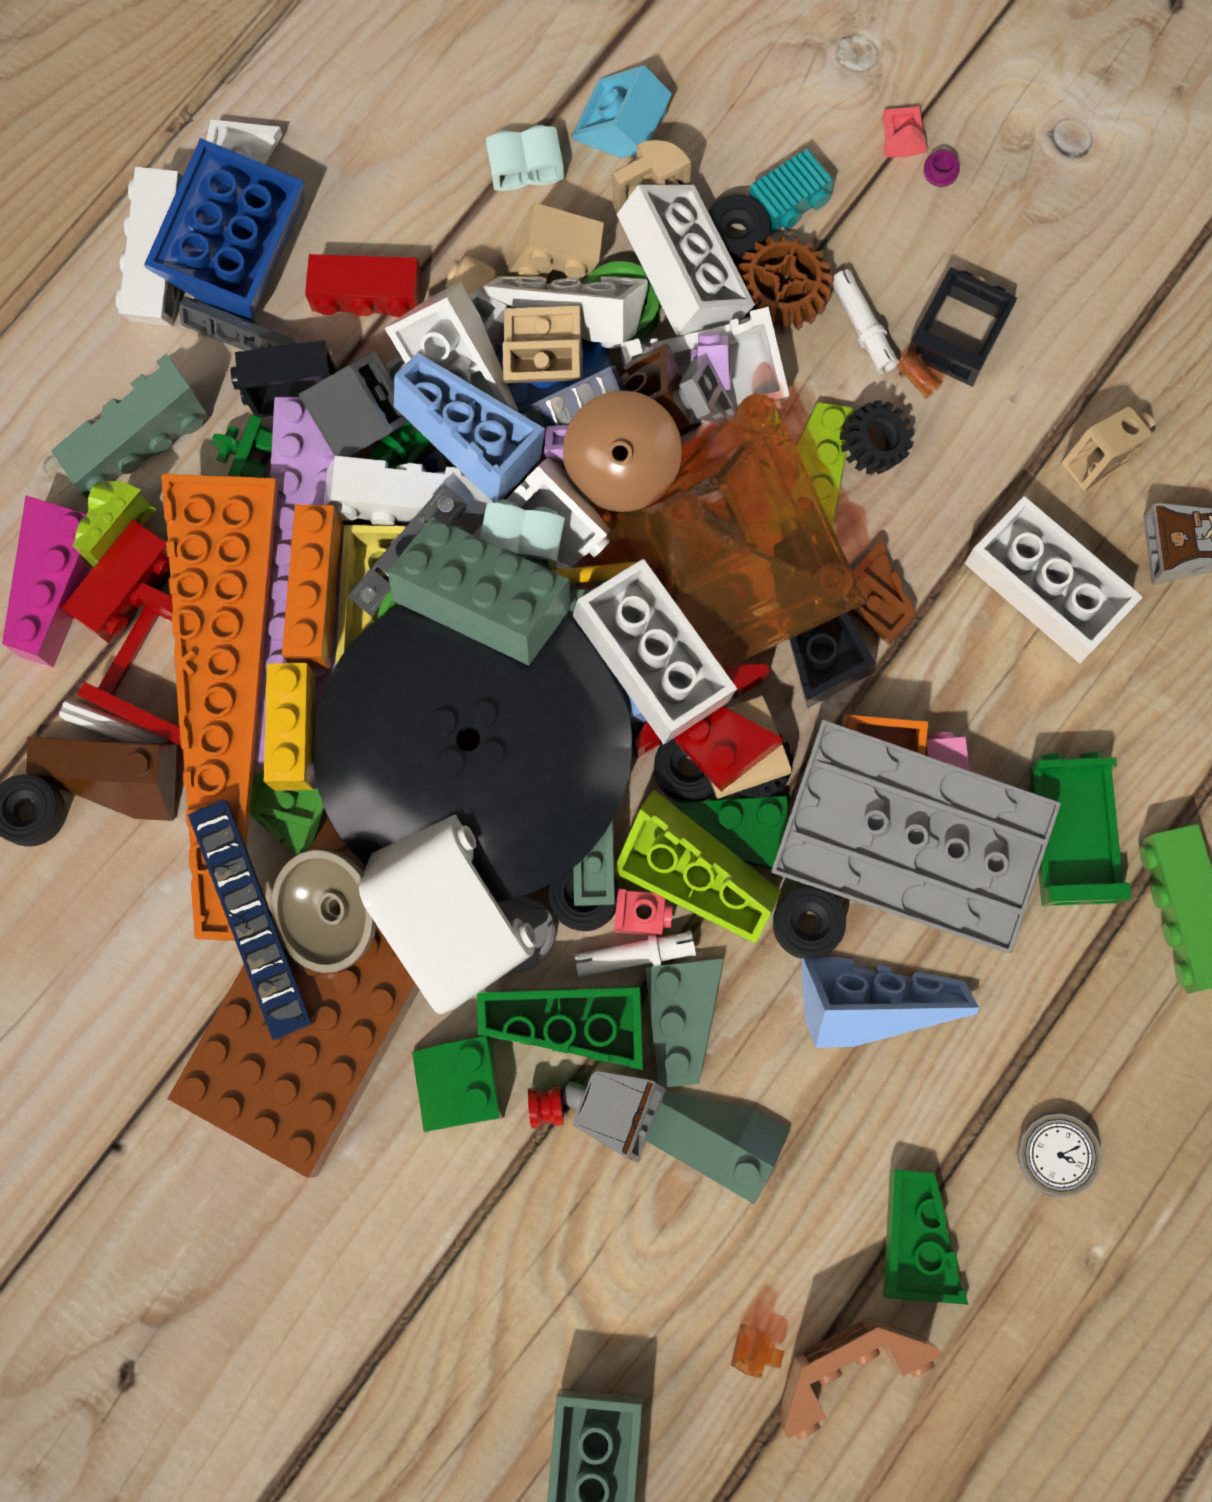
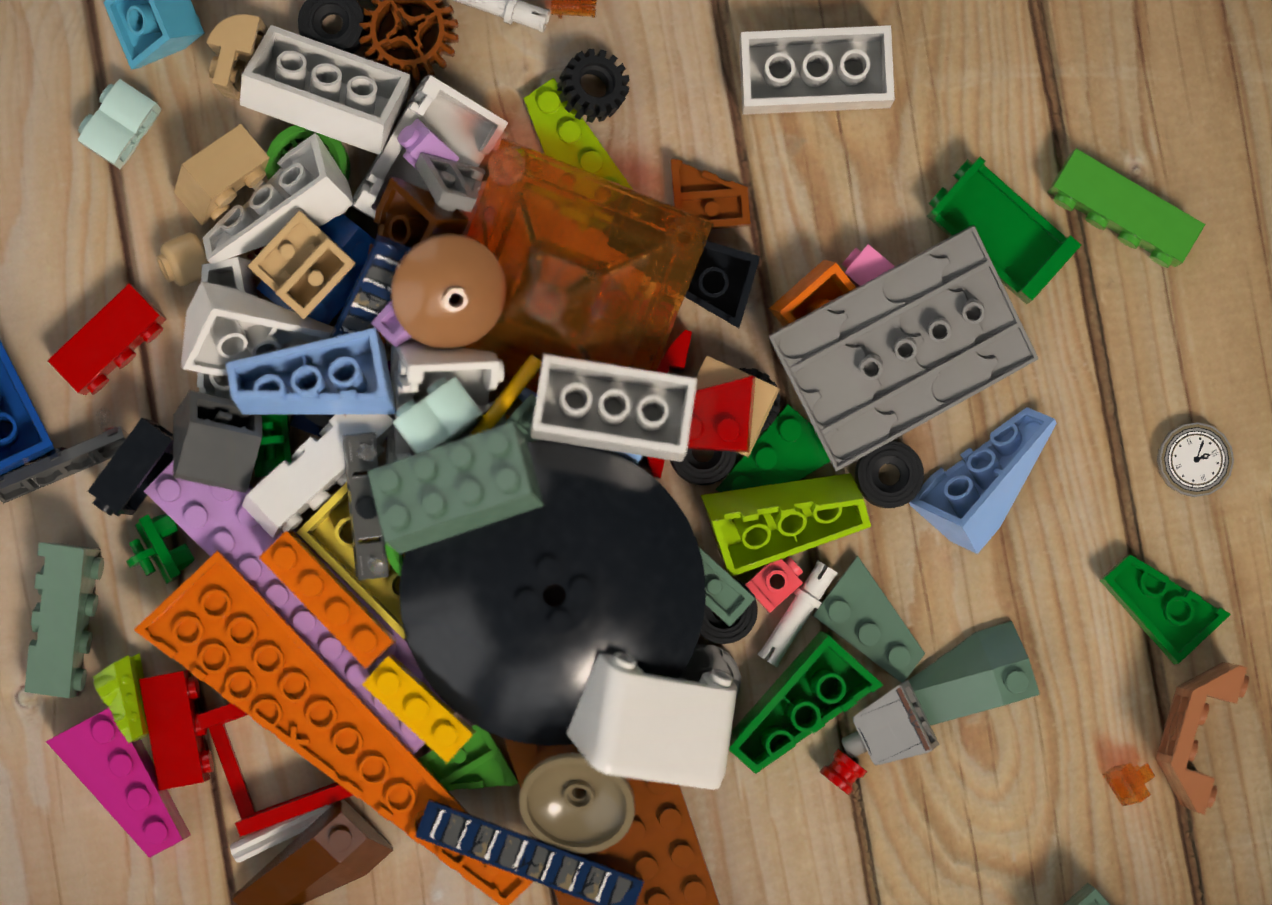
camera: 50 degrees left, 10 degrees up
(457, 1084) = (771, 818): green slope -> none

